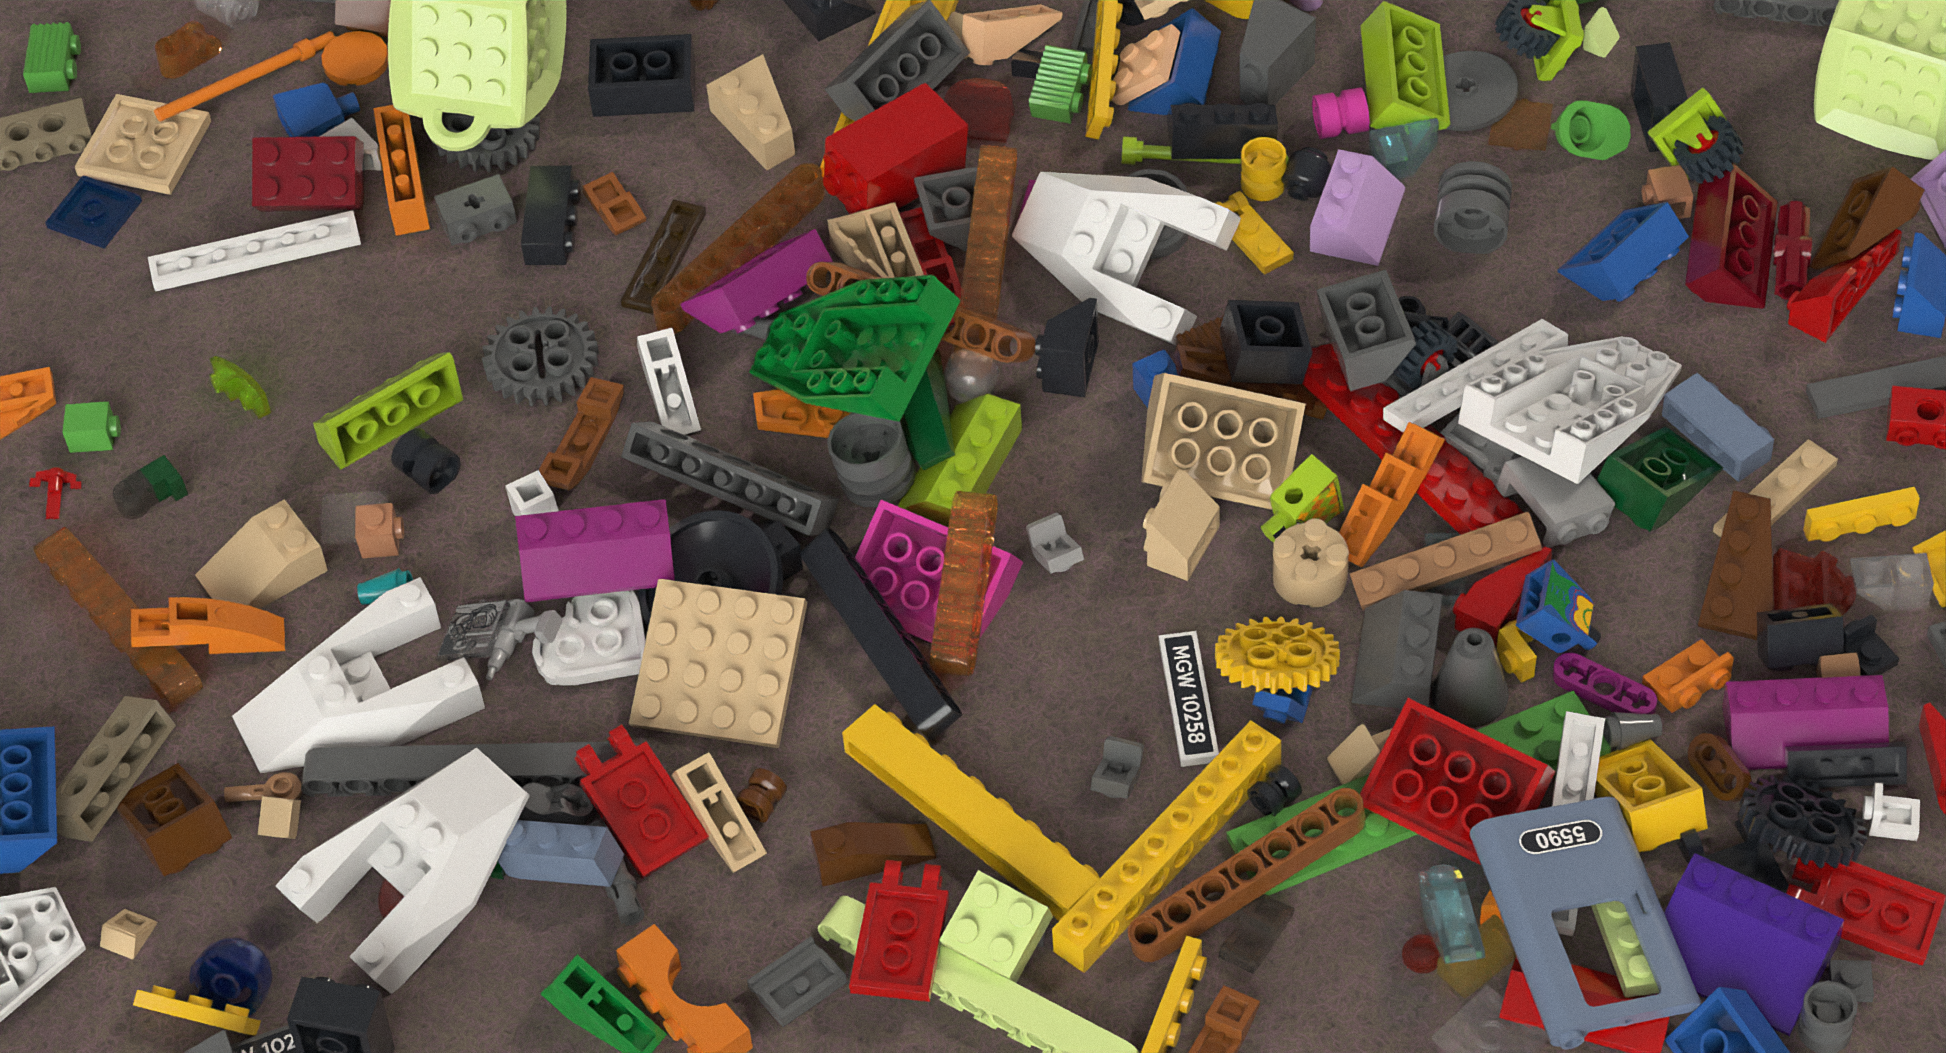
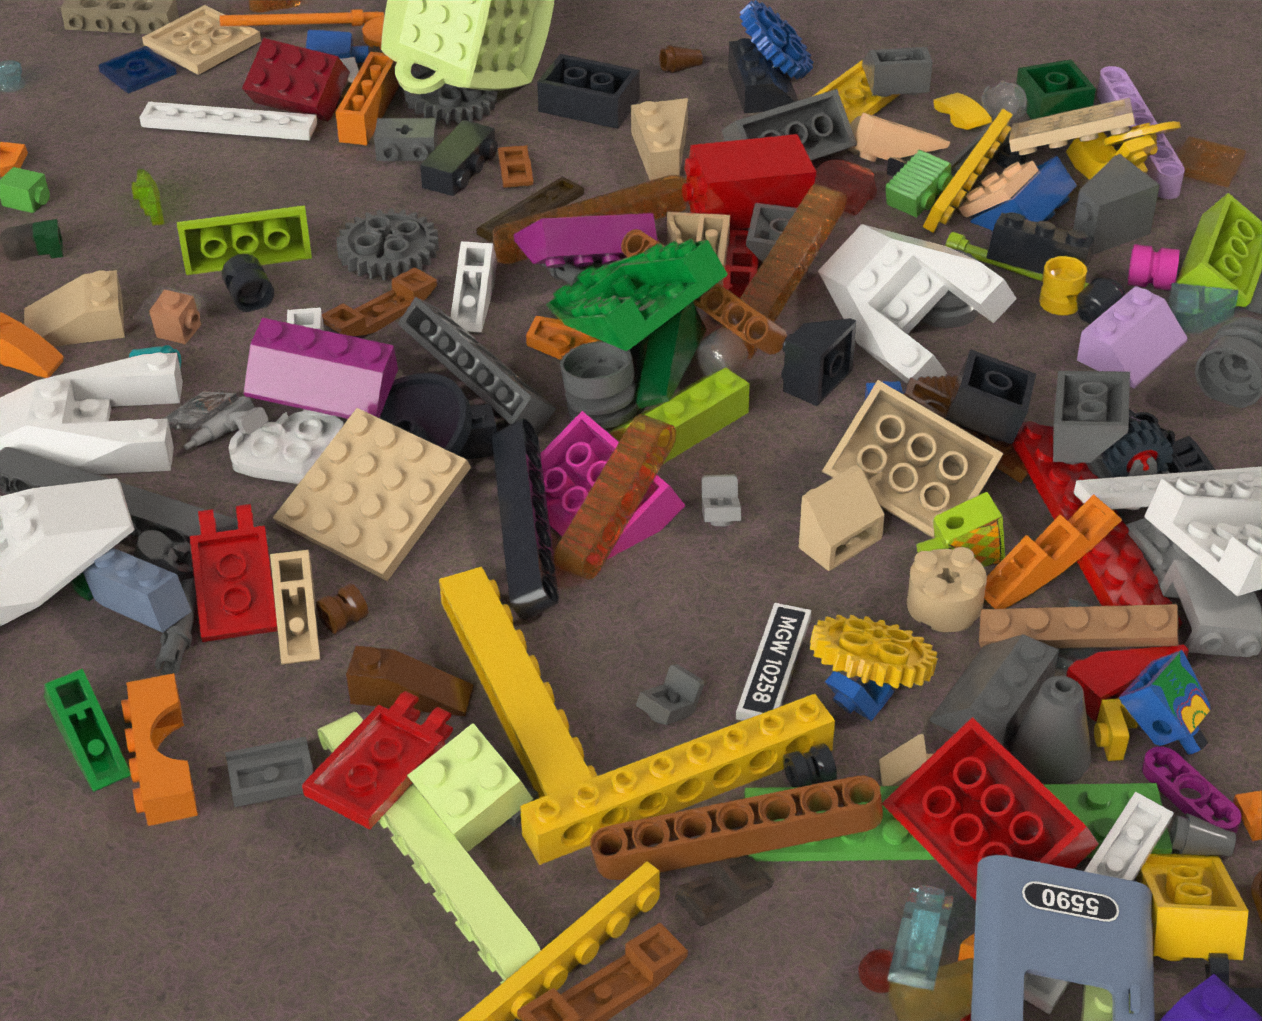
camera: 20 degrees right, 10 degrees down
(1256, 236) = (1031, 332): yellow plate -> none

